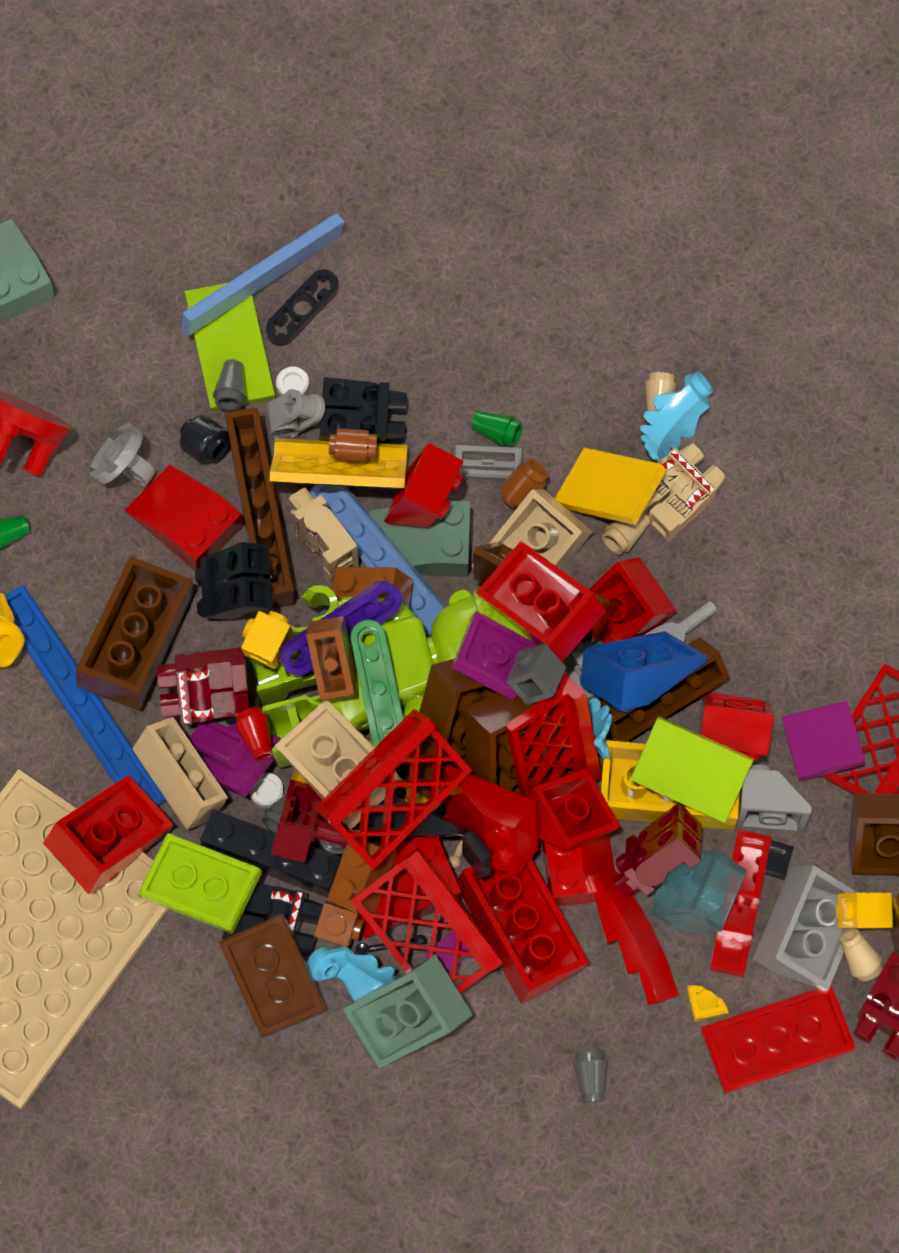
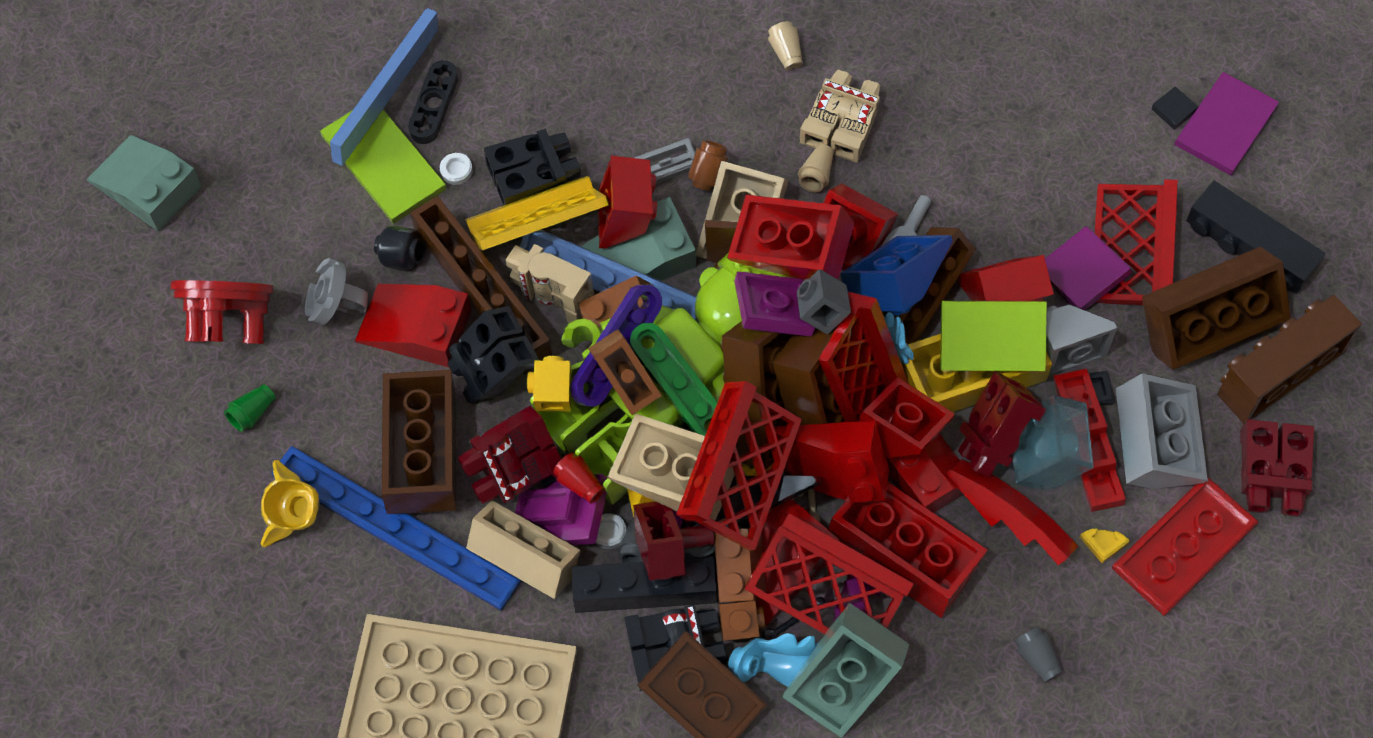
camera: 20 degrees left, 5 degrees down
(107, 833) = (481, 634): red slope -> none
(200, 883) = (592, 640): lime tile -> none
(230, 388) = (403, 193): dark grey cone -> none
(294, 413) = (471, 190): light grey piece -> none
(353, 445) = (541, 192): dark orange brick -> none
(477, 854) = (839, 496): black tile -> none
(497, 427) = (658, 129): green cone -> none
(610, 485) = (786, 132): yellow tile -> none
(675, 416) = (809, 54): medium azure plant -> none
(860, 956) = (1220, 438): tan cone -> none
(864, 910) = (1204, 394): yellow brick -> none

